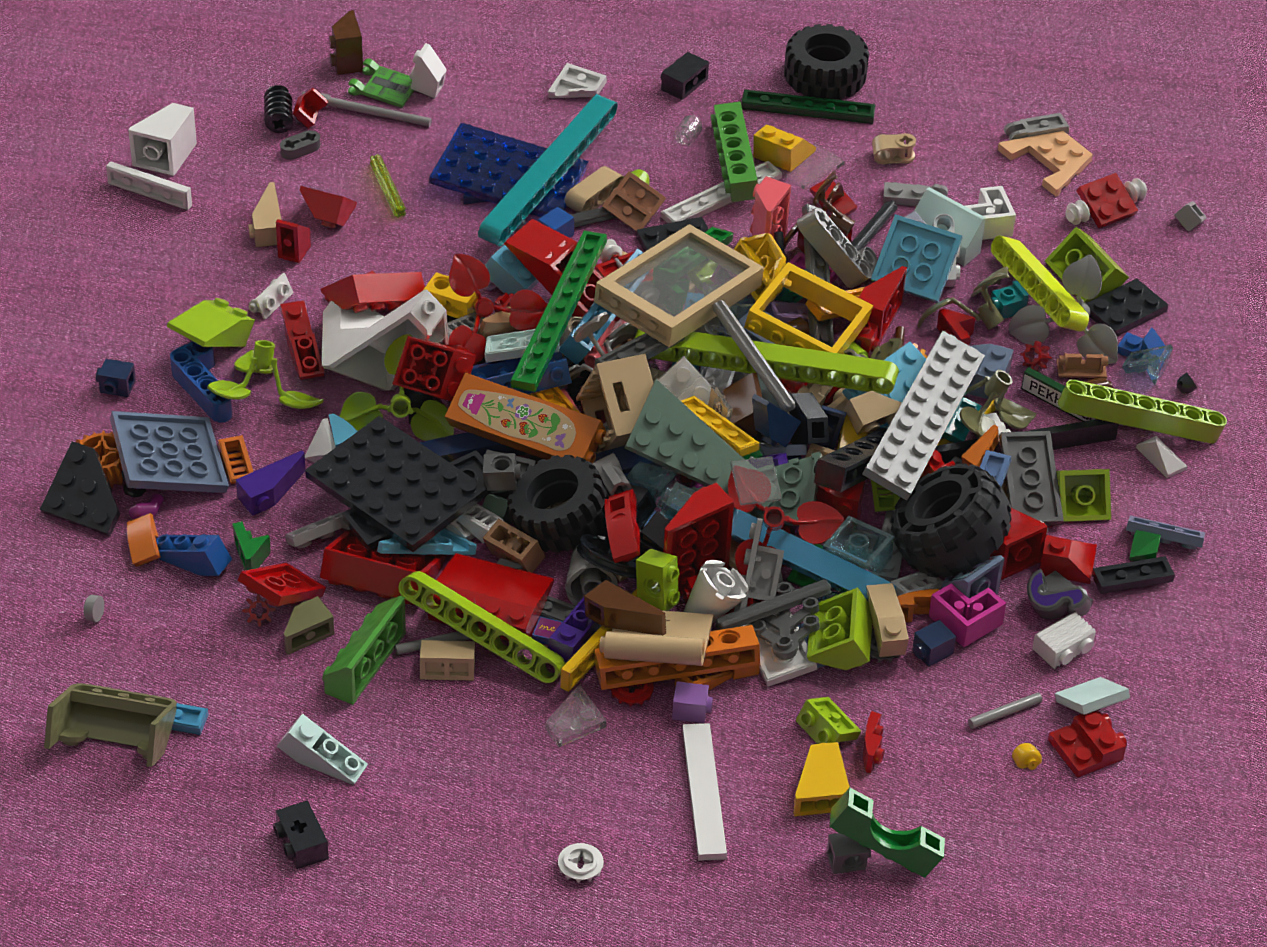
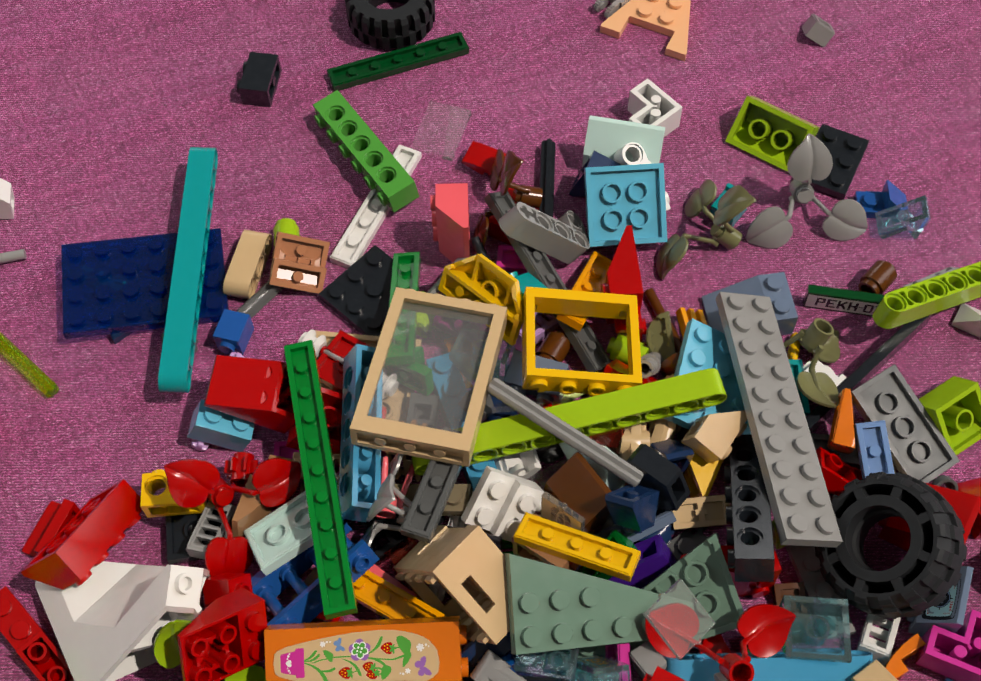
camera: 25 degrees left, 15 degrees up
(577, 82) = (155, 135): white wing -> none
(688, 130) = (300, 143): clear brick -> none
(781, 148) = (405, 125): yellow slope -> none
(892, 149) = (508, 78): tan piece -> none
(908, 193) = (559, 120): light grey hinge -> none
(956, 324) = (701, 267): red slope -> none
(1029, 353) = (794, 269): red gear -> none
(1040, 283) = (762, 177): neon yellow beam -> none
(1074, 367) = (845, 253): nougat hinge -> none
(1106, 201) = (739, 48): red plate -> none
(1185, 384) = (947, 224): black hinge -> none

